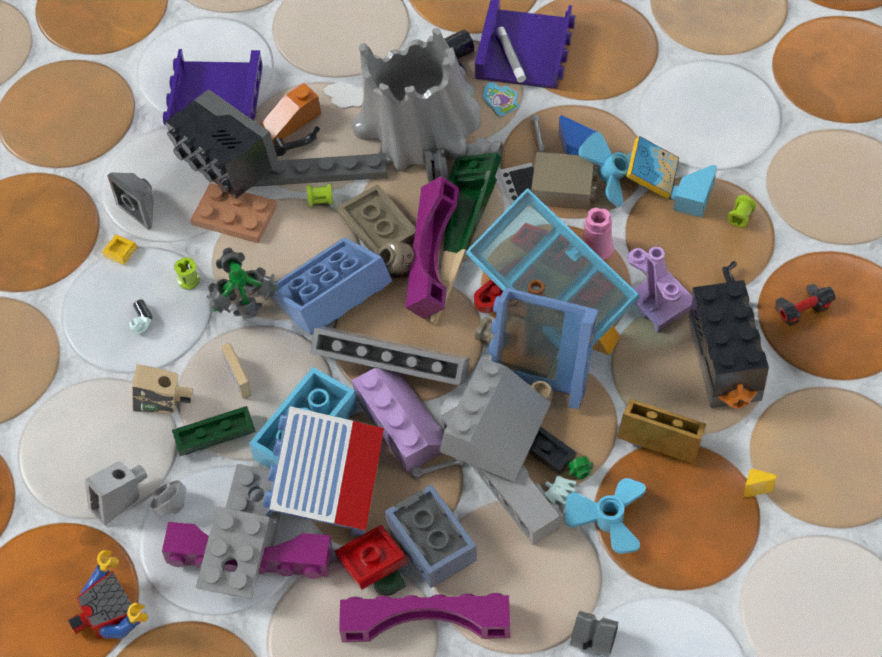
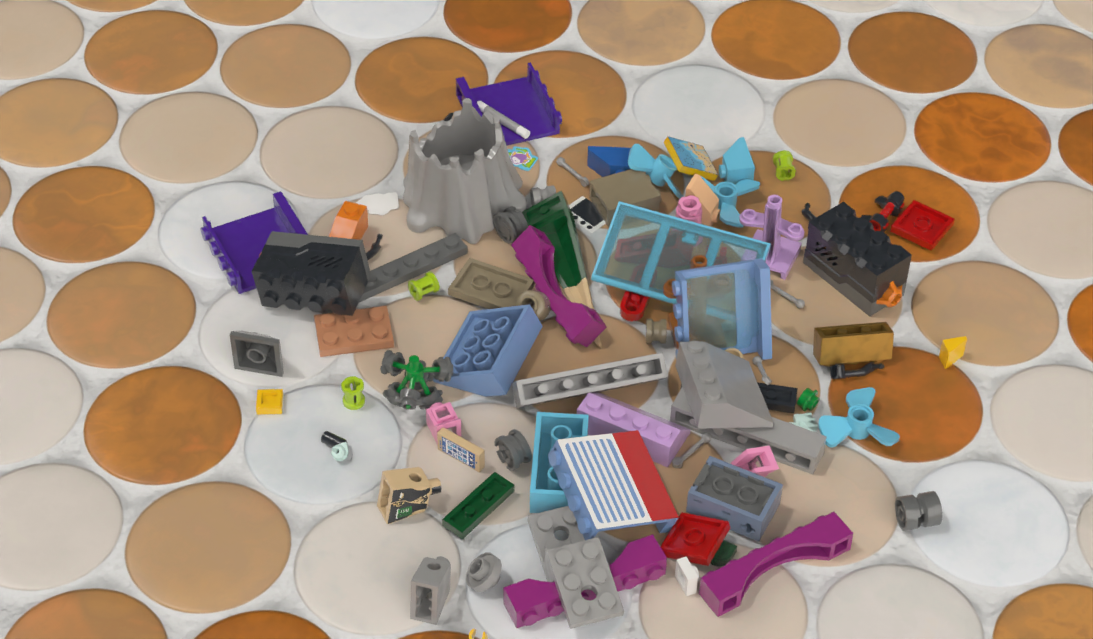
camera: 35 degrees left, 10 degrees down
(242, 333) = (444, 416): none -> bright pink window
(275, 391) = (513, 449): none -> dark grey wheel
(337, 589) = (687, 576): none -> white plate
(474, 511) = (757, 460): none -> bright pink window
(550, 429) = (757, 361): none -> light grey hinge
(626, 219) = (707, 198): none -> light nougat slope
(631, 450) = (839, 371): none -> black piece
(636, 330) = (798, 302): none -> light grey hinge
(656, 218) = (727, 194): none -> medium azure piece
(834, 334) = (922, 225): none -> red plate

